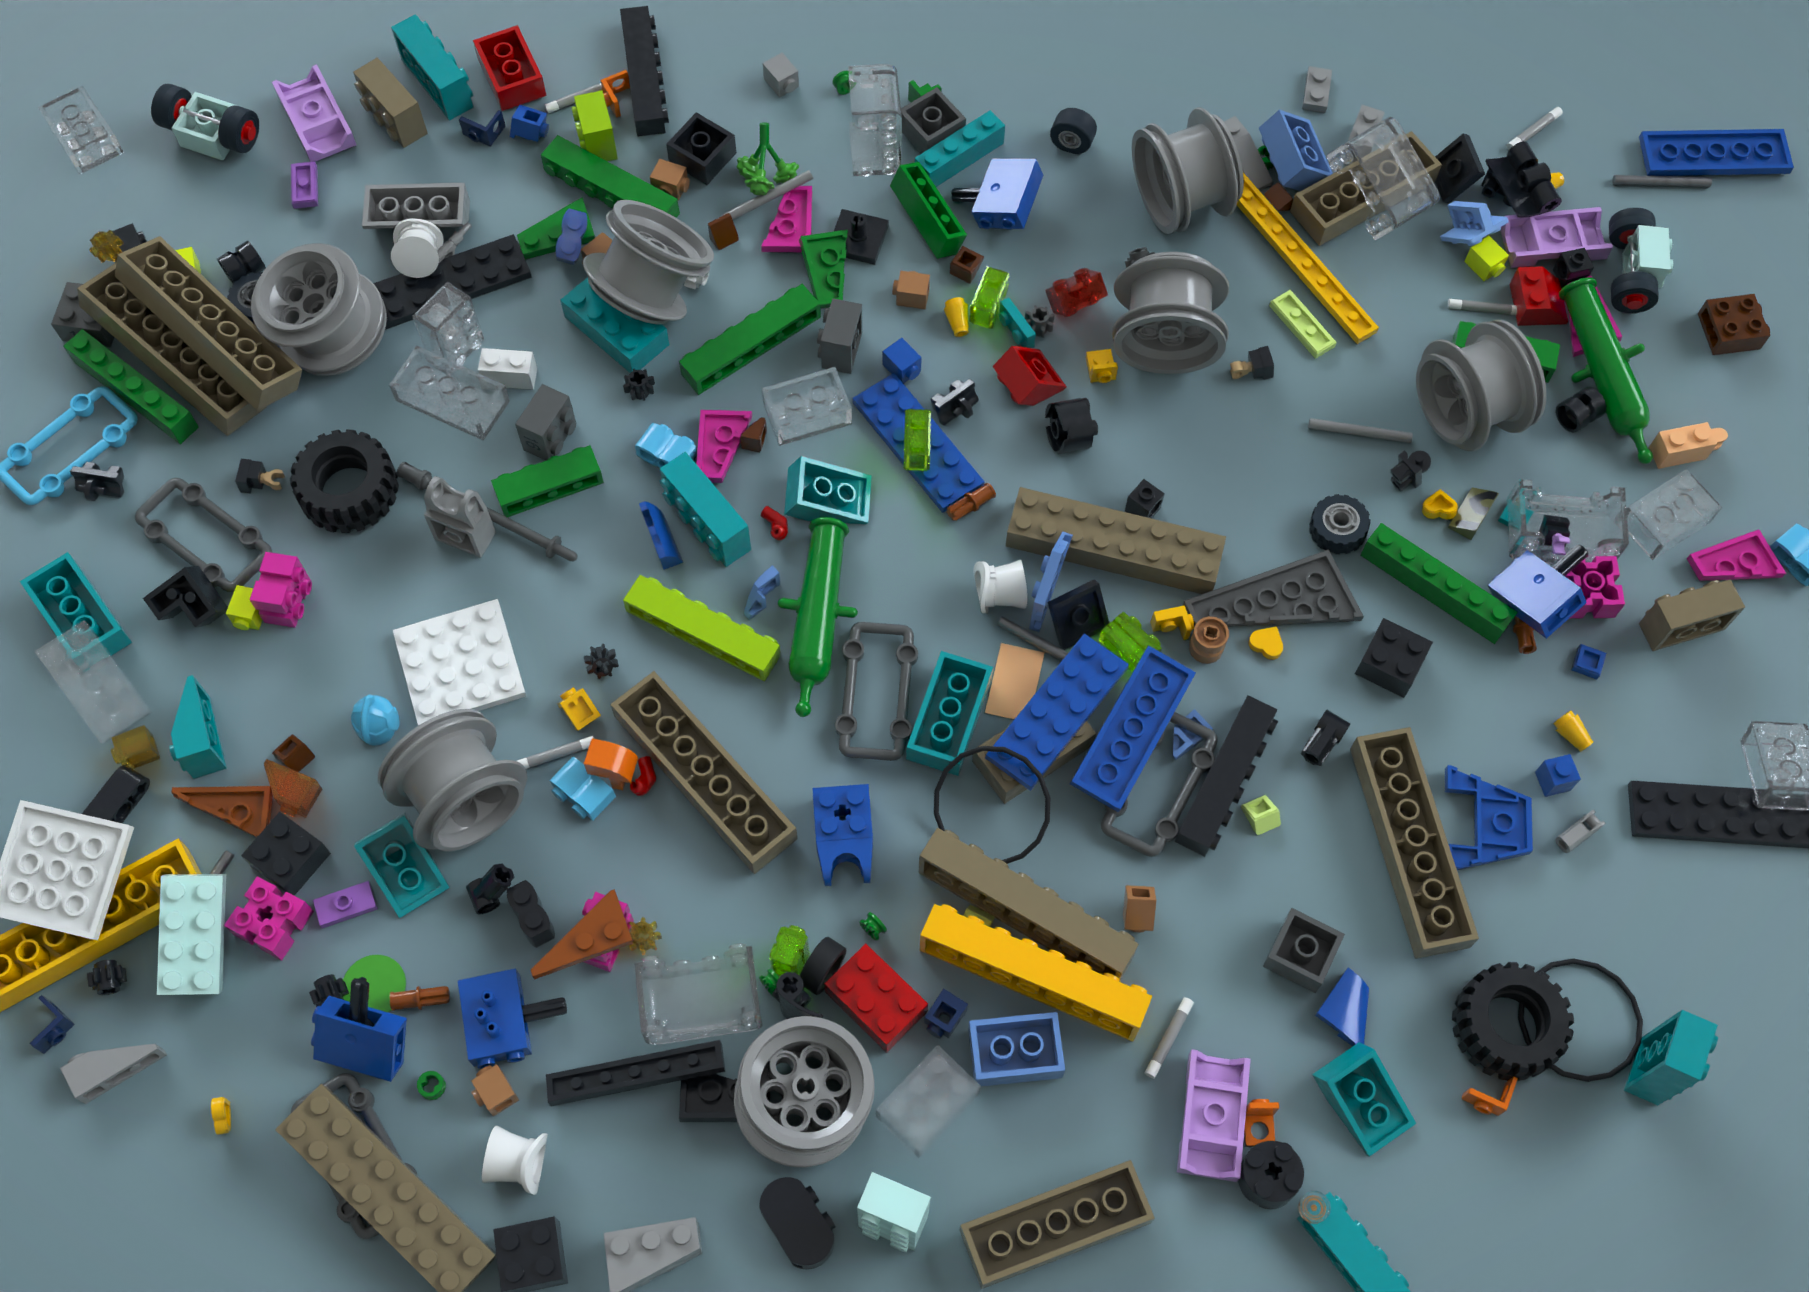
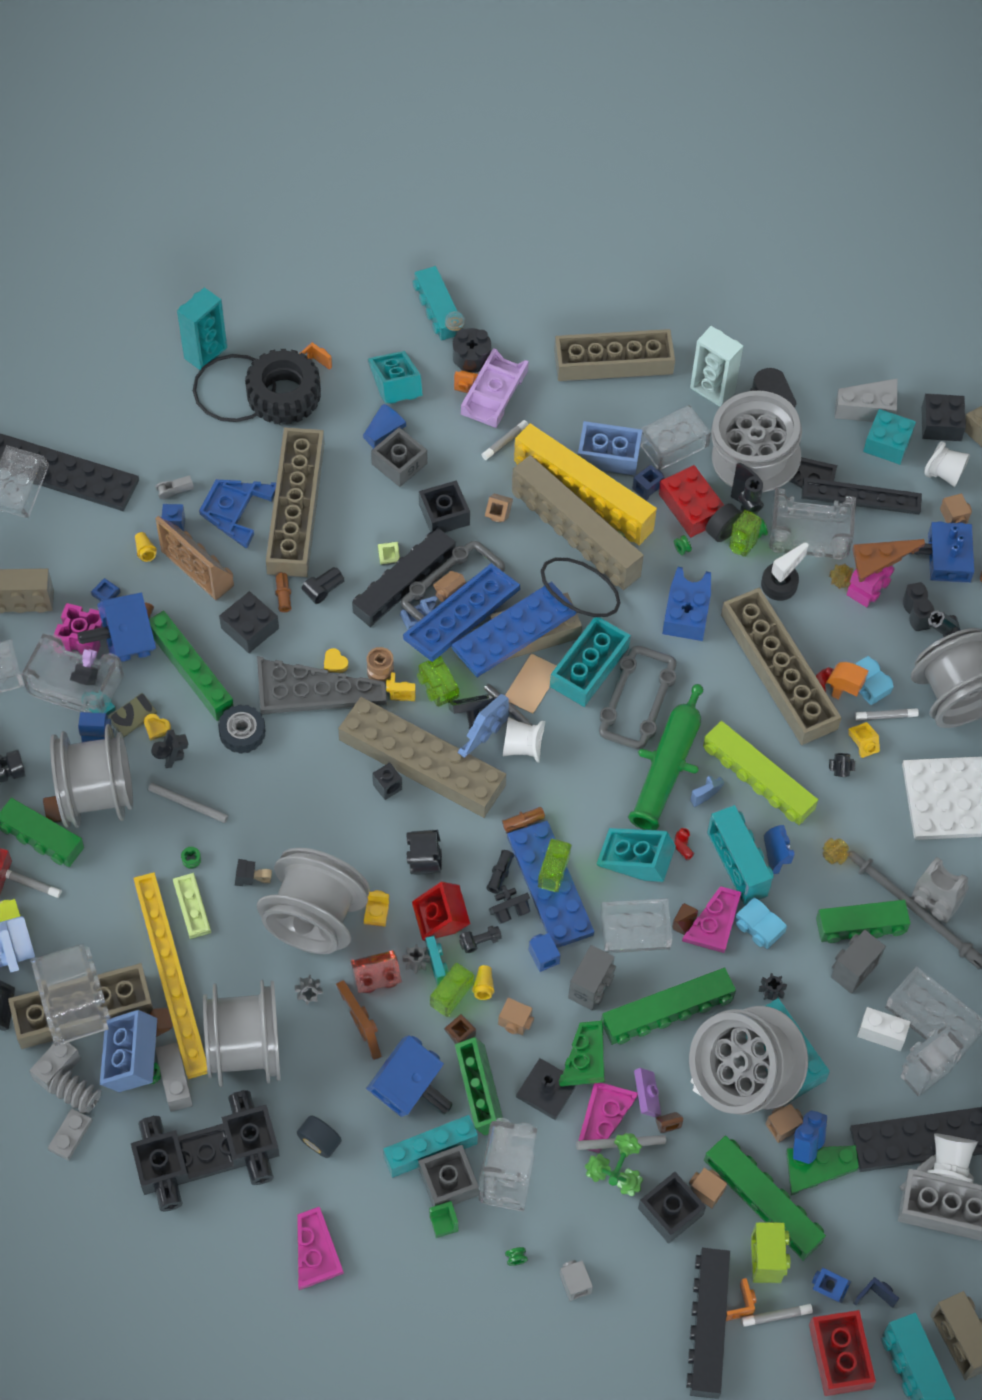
camera: 165 degrees left, 5 degrees down
(592, 552) = (835, 851): none -> clear yellow gear
(608, 1194) = (889, 436): none -> teal brick
(722, 912) = (785, 564): none -> white slope
(731, 922) = (776, 591): none -> black tyre
(752, 251) = (647, 1092): none -> medium lavender plate
(978, 439) = (500, 871): none -> black pin
(987, 354) = (469, 942): none -> black bar
(1036, 45) = (315, 1250): none -> dark pink wing
(1071, 242) = (361, 1019): none -> dark orange wing
(1161, 771) = (448, 585): none -> medium nougat brick
(1209, 79) = (205, 1151): none -> black piece
(1212, 885) = (444, 507): none -> black brick
(1327, 378) = (189, 851): none -> green bush
(1331, 116) = (74, 1093): none -> light grey piece
(1368, 712) = (283, 592): none -> dark orange axle
(1505, 712) = (194, 559): none -> medium nougat slope
(1506, 467) = (92, 726): none -> blue brick

